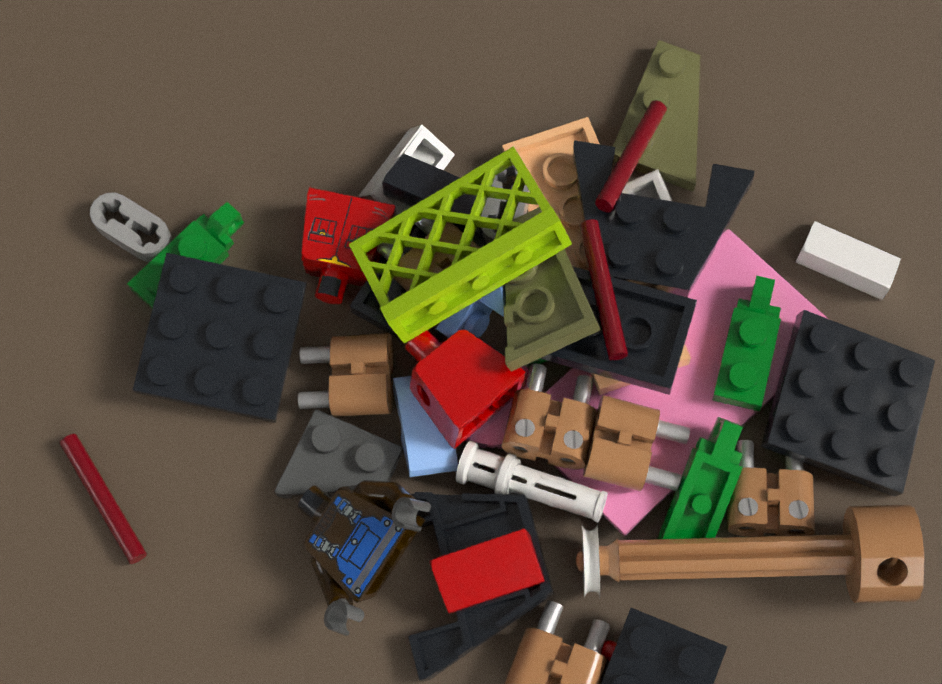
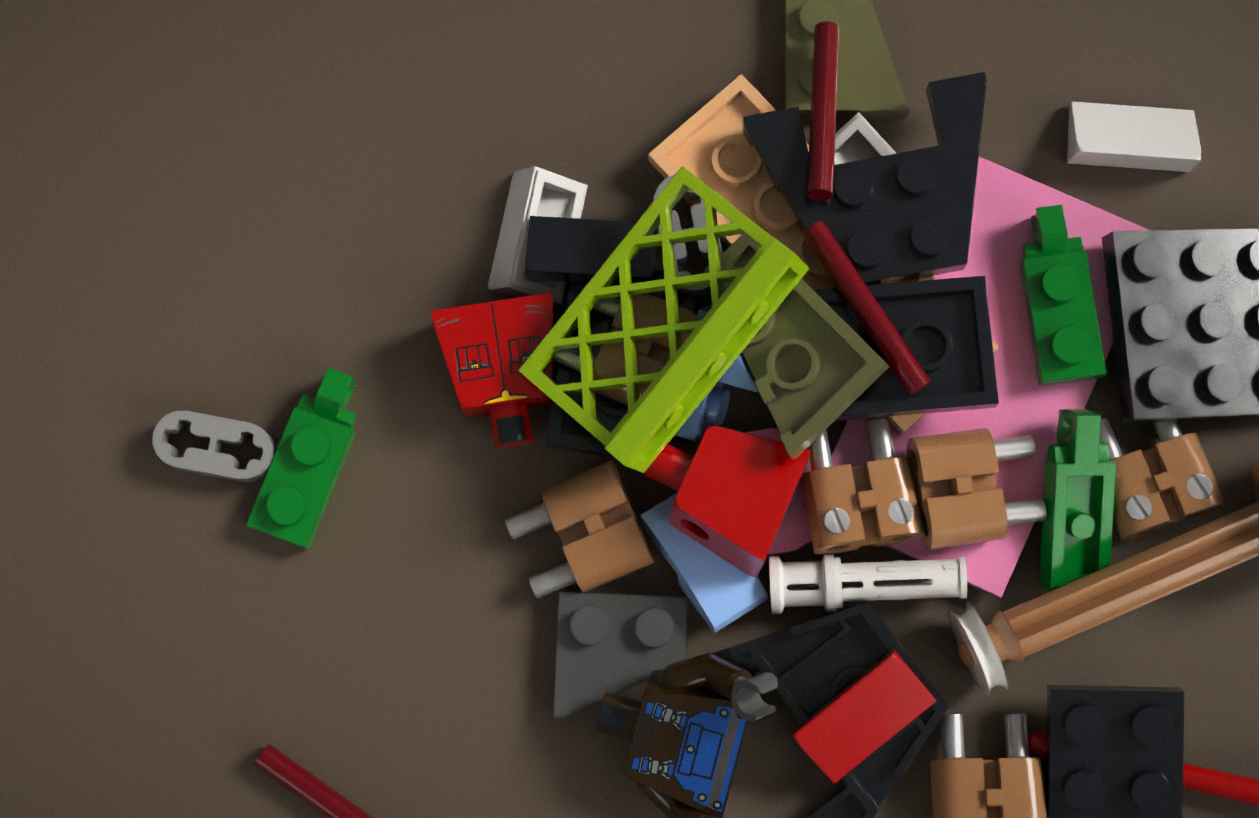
camera: 30 degrees left, 10 degrees up
(220, 337) = (400, 550): black plate -> none

